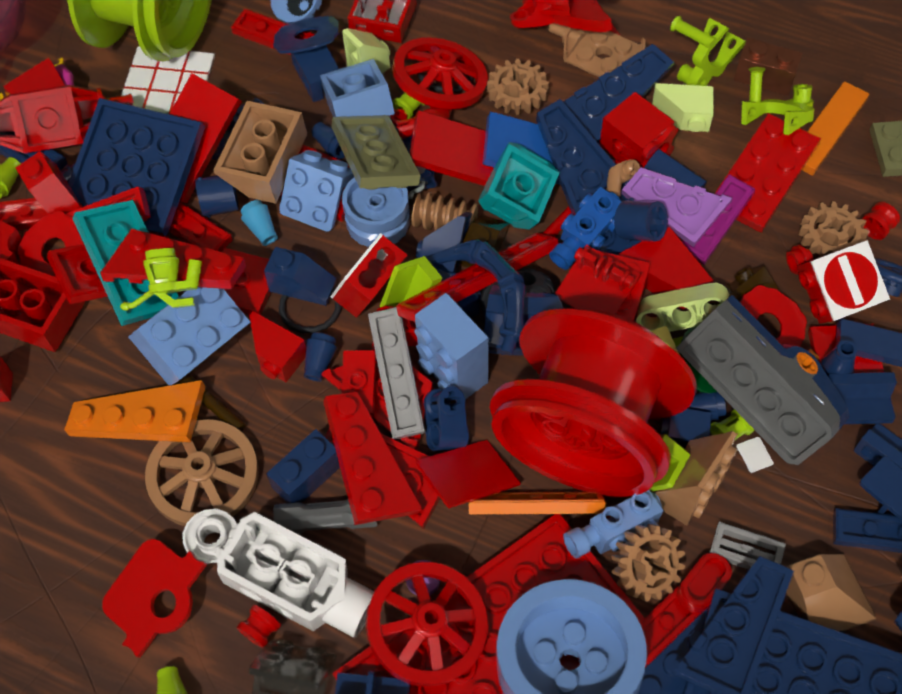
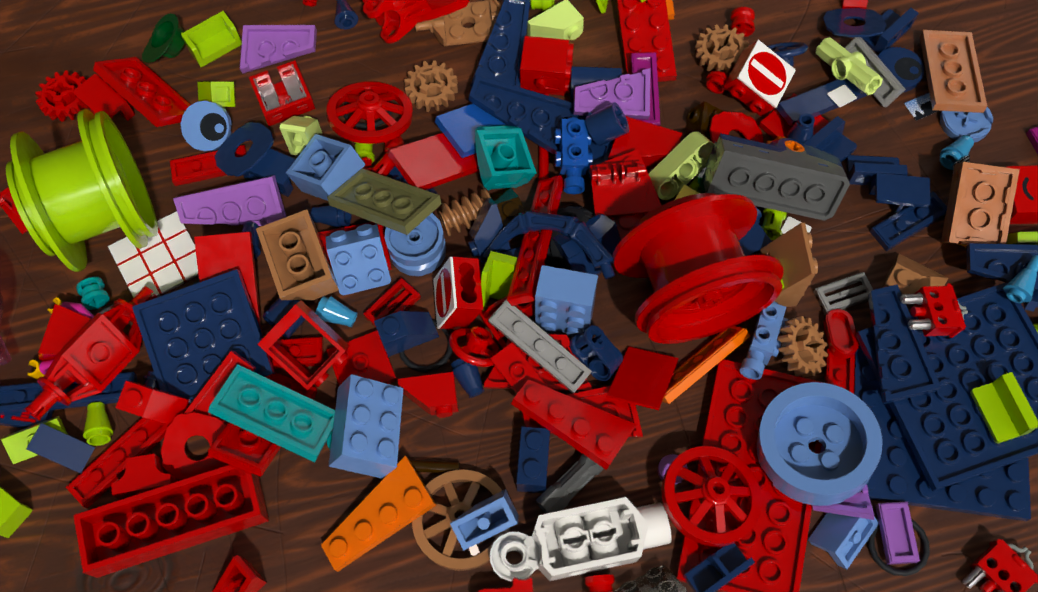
camera: 40 degrees left, 5 degrees up
(91, 72) = (92, 293): none -> teal wheel
(162, 273) = (326, 401): lime piece -> none
(211, 482) = (485, 520): none -> medium blue slope
(215, 191) = (288, 362): none -> red window
(217, 268) = (303, 393): red wing -> none
(259, 75) = (233, 204): none -> medium lavender wing
(322, 256) = (405, 306): none -> red tile
(347, 331) = (478, 341): none -> red piece
(620, 174) = (562, 101): medium nougat arm -> none
(813, 627) = (937, 311): none -> red piece

